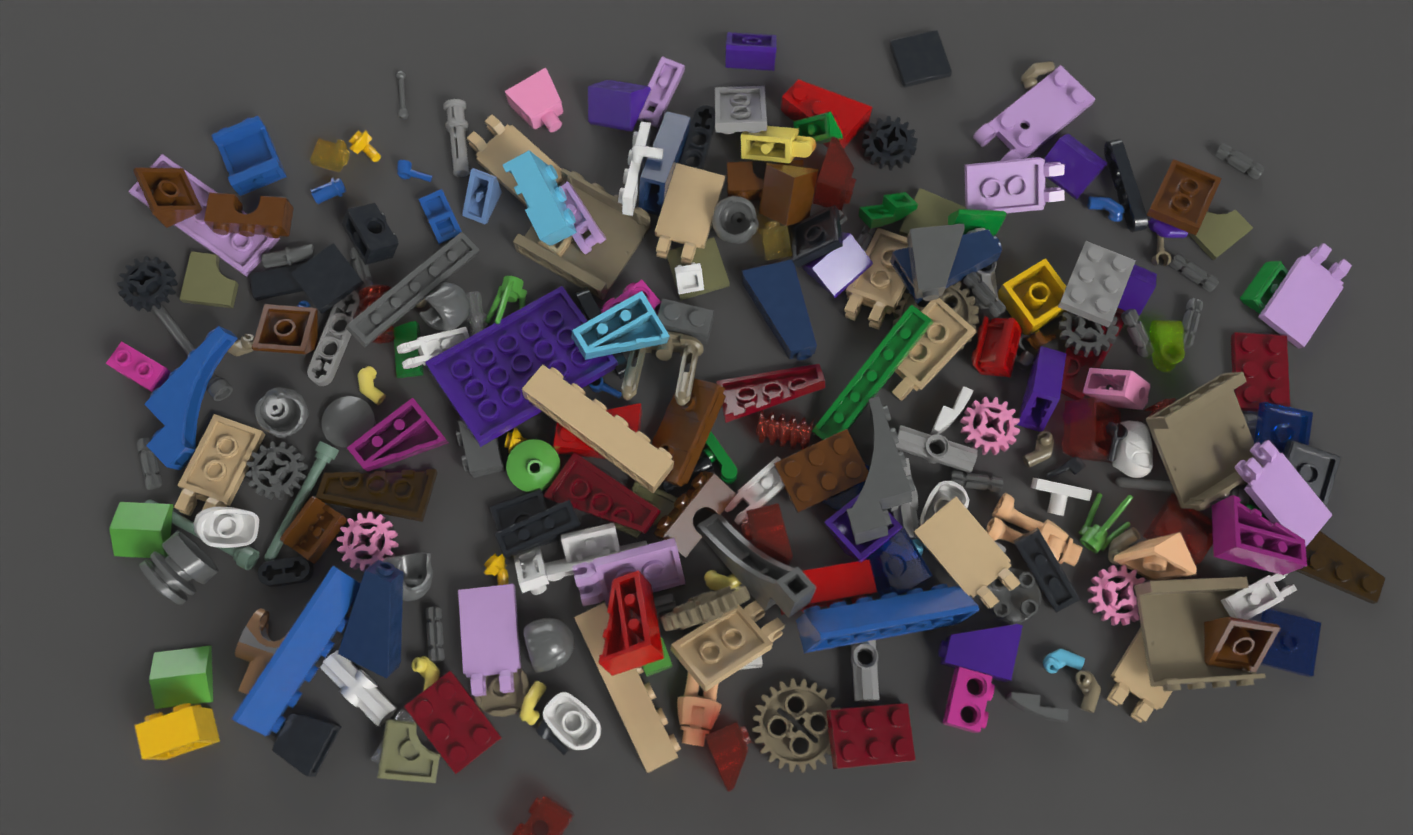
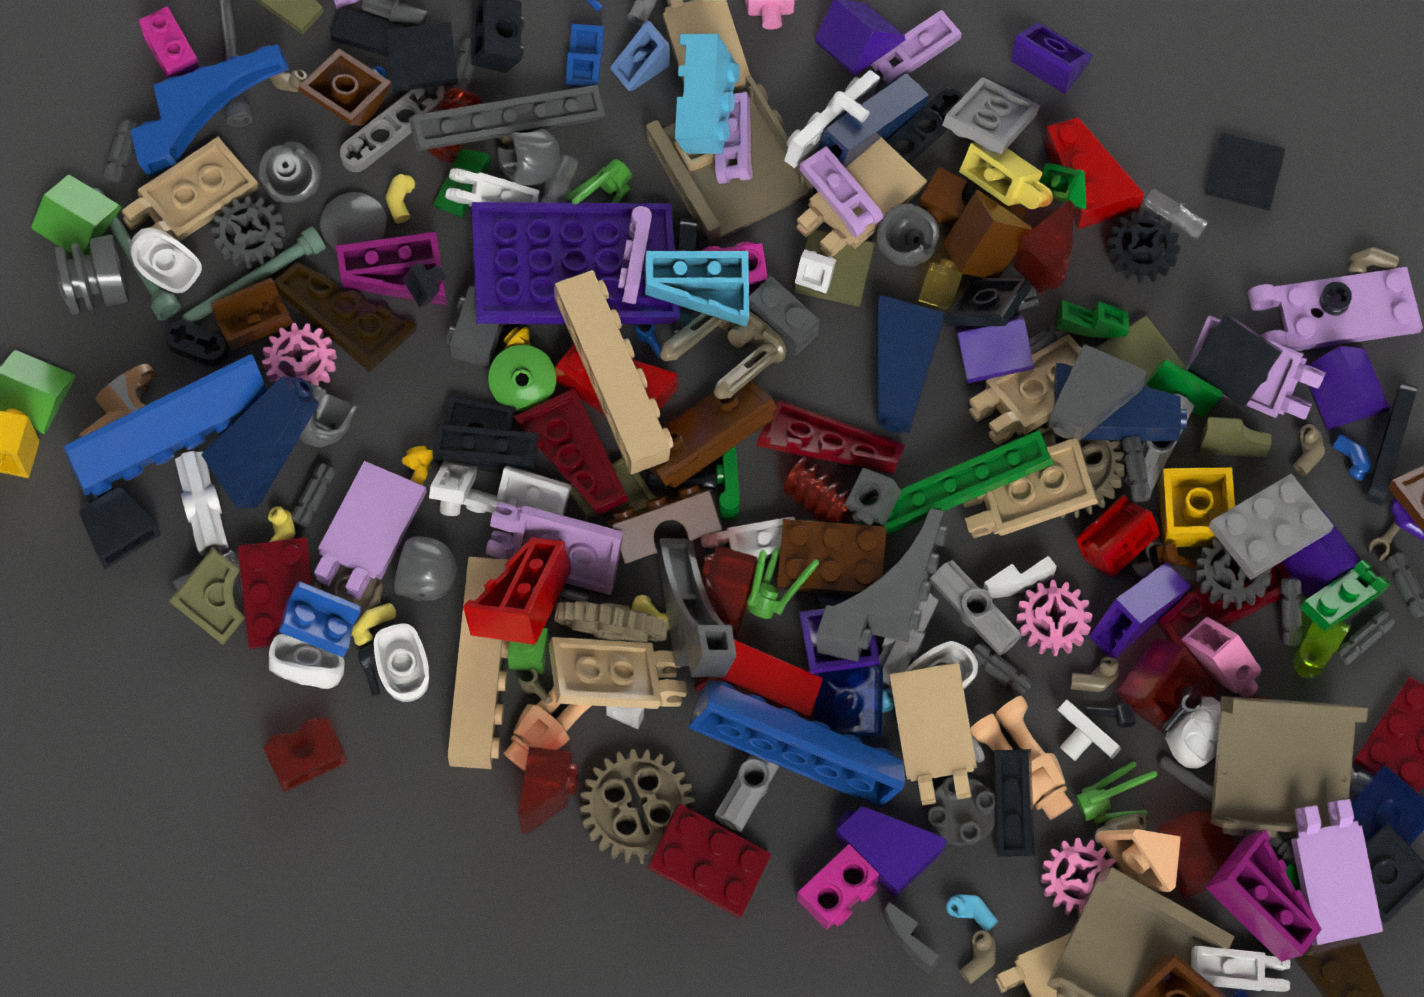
camera: 30 degrees right, 5 degrees down
(426, 439) = (423, 283): none -> black tile
(495, 727) = (319, 619): none -> blue bracket
(503, 760) = (304, 663): none -> white piece
(562, 335) = (635, 253): none -> lavender plate
(674, 214) = (840, 191): none -> lavender plate
(674, 681) = (534, 686): none -> dark tan hand
(793, 522) = (764, 597): none -> bright green plant
(818, 405) = (870, 485): none -> dark grey brick
(896, 109) = (1175, 213): none -> clear axle
(1000, 185) = (1235, 360): none -> black tile
(1026, 113) = (1340, 307): none -> black bush
(1028, 238) = (1232, 438): none -> olive tile
(1078, 217) = (1312, 449): none -> dark tan arm
(1164, 303) = (1344, 596): none -> green plate

